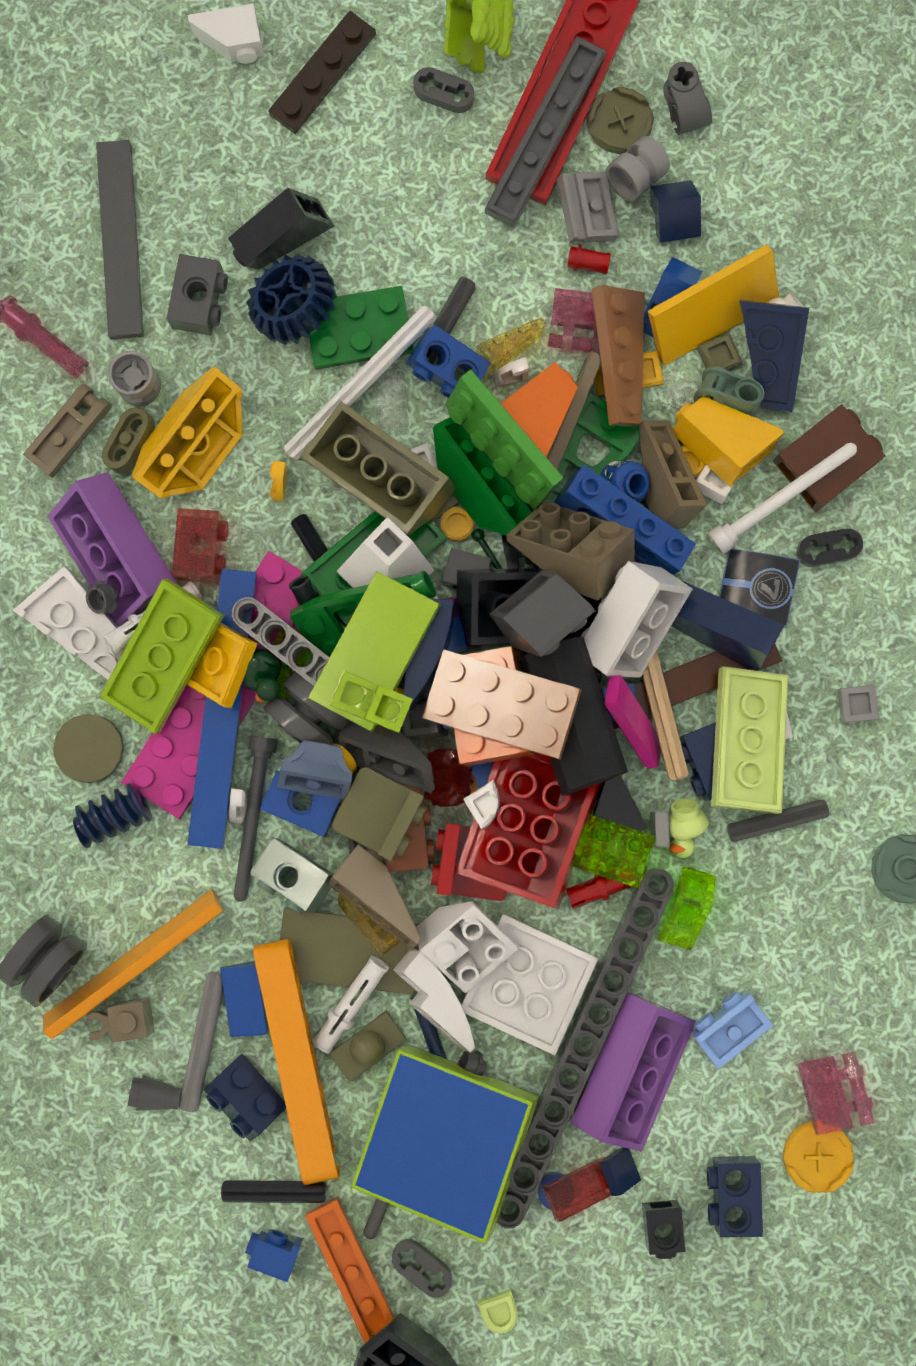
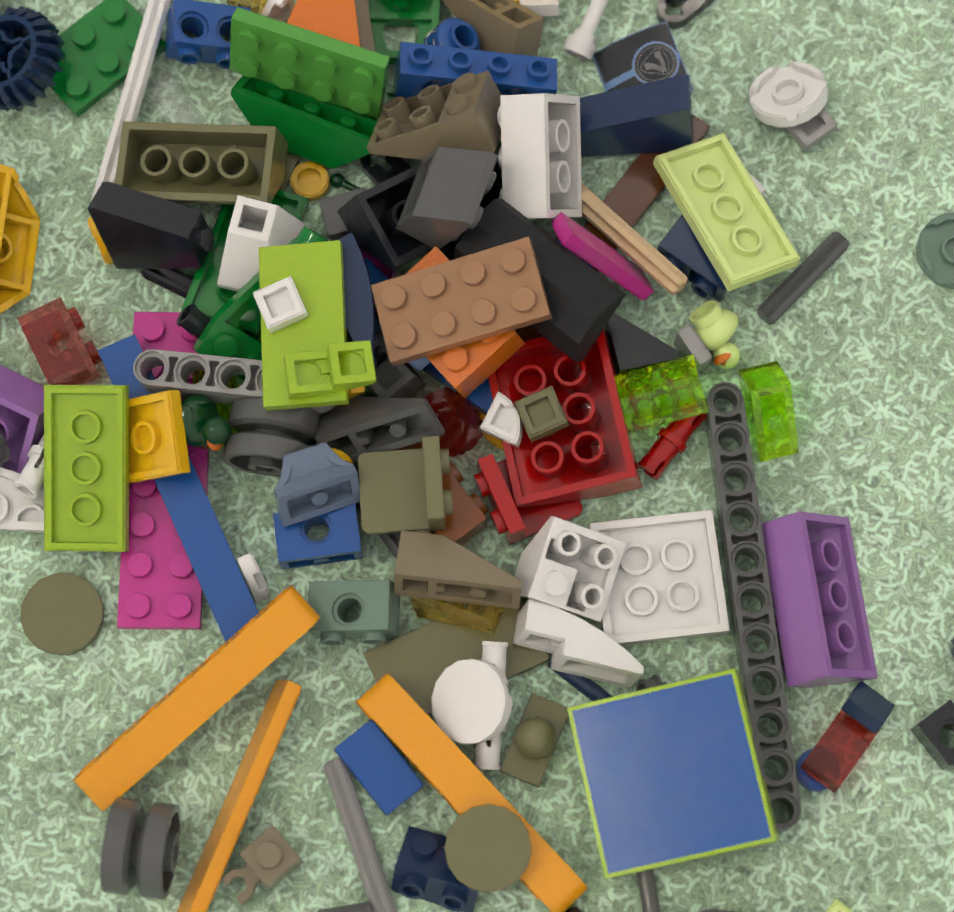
camera: 30 degrees left, 10 degrees down
(110, 816) = (126, 661): dark blue piece -> none
(144, 875) = (196, 698): none -> light orange beam
(261, 750) = (244, 507): dark grey piece -> none
(282, 1112) = (488, 848): none -> olive tile
(311, 498) = (149, 230): none -> black slope
(335, 997) = (471, 701): none -> white tile
(365, 627) = (280, 304): none -> white tile
(514, 817) = (541, 414): none -> olive tile
(730, 1028) = (887, 500): light blue bracket -> none
(857, 673) = (788, 94): none -> white tile

